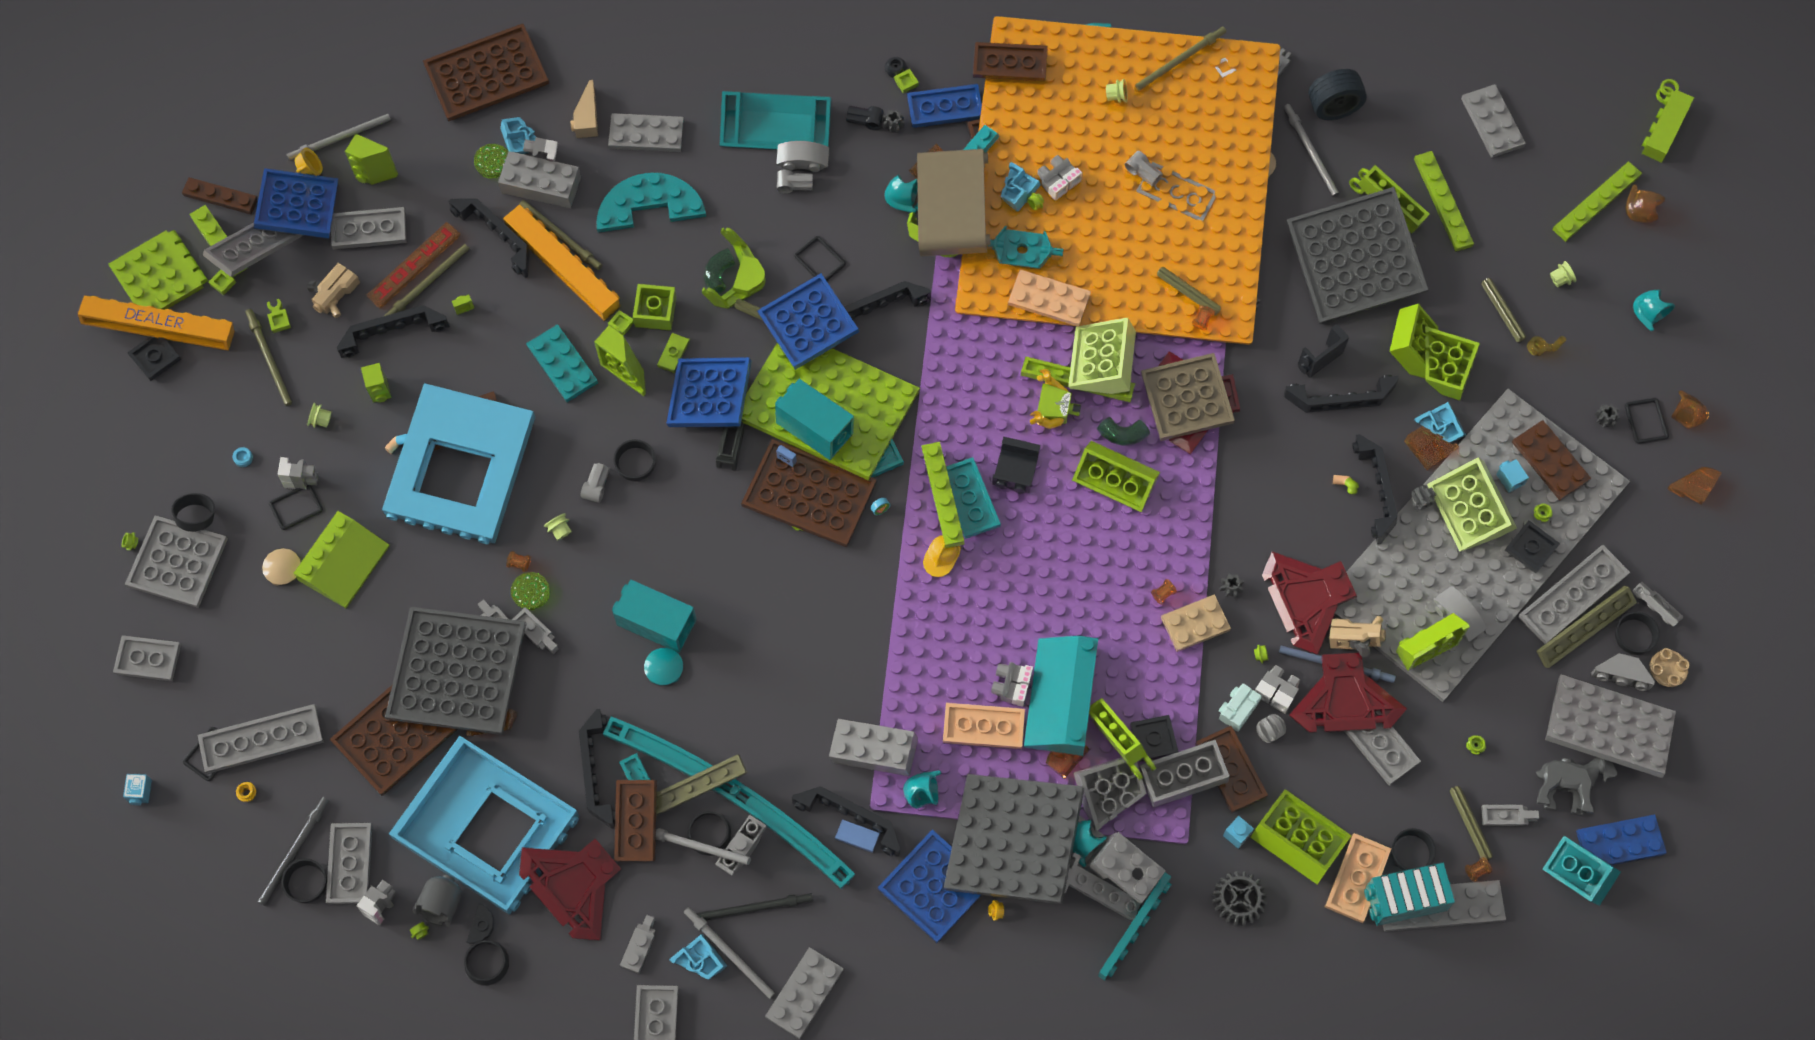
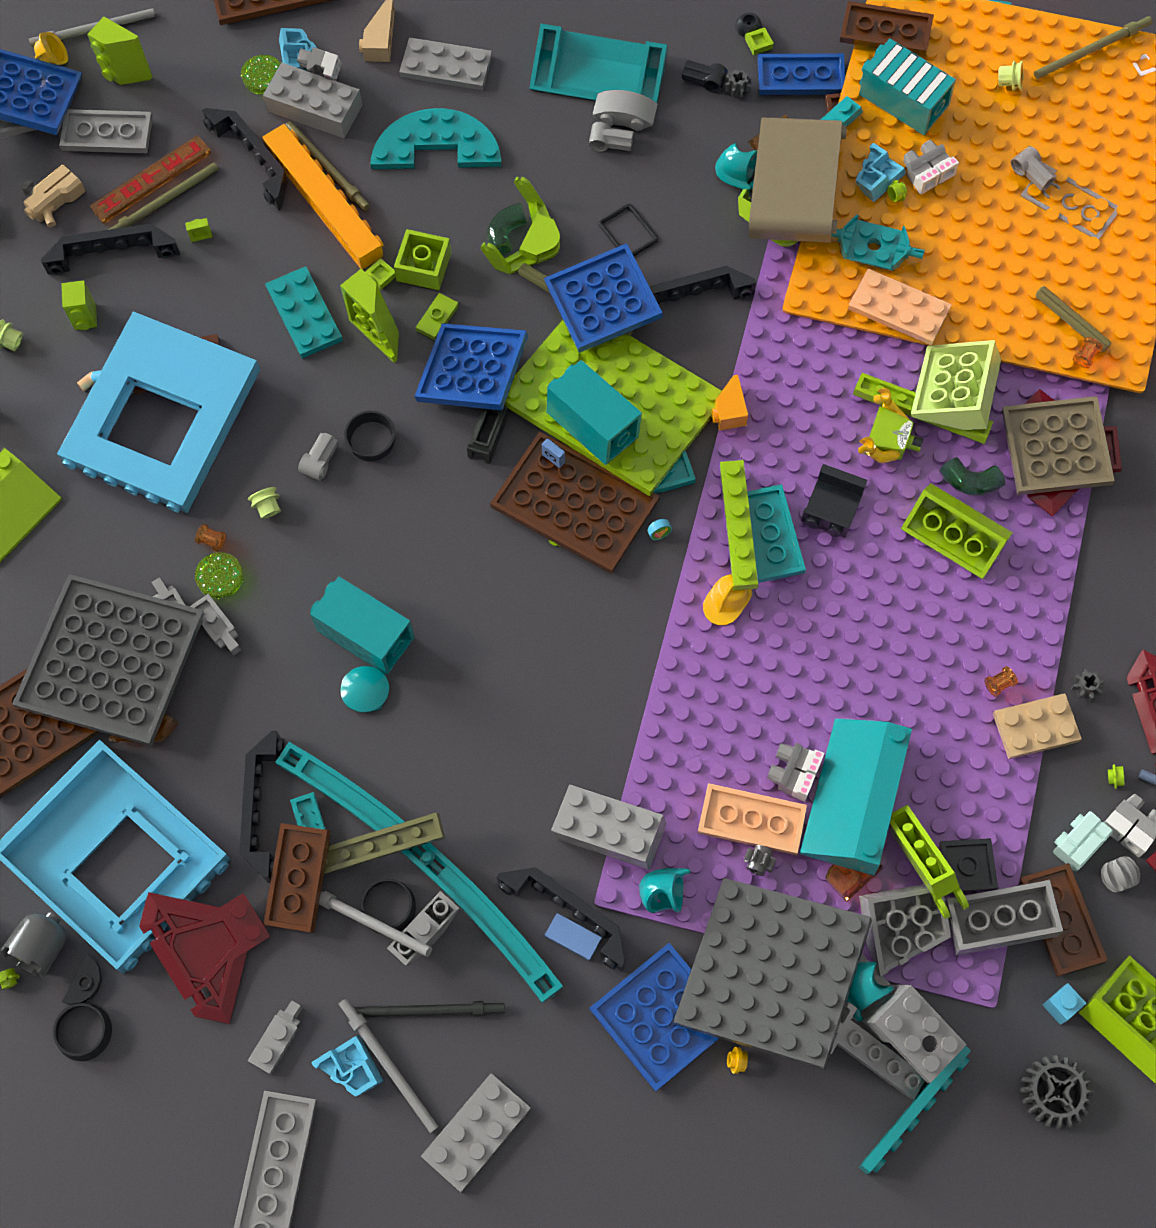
camera: 10 degrees right, 0 degrees up
(923, 398) = (730, 406): none -> light orange slope
(993, 756) = (759, 860): none -> dark grey gear
(1032, 112) = (906, 86): none -> teal brick

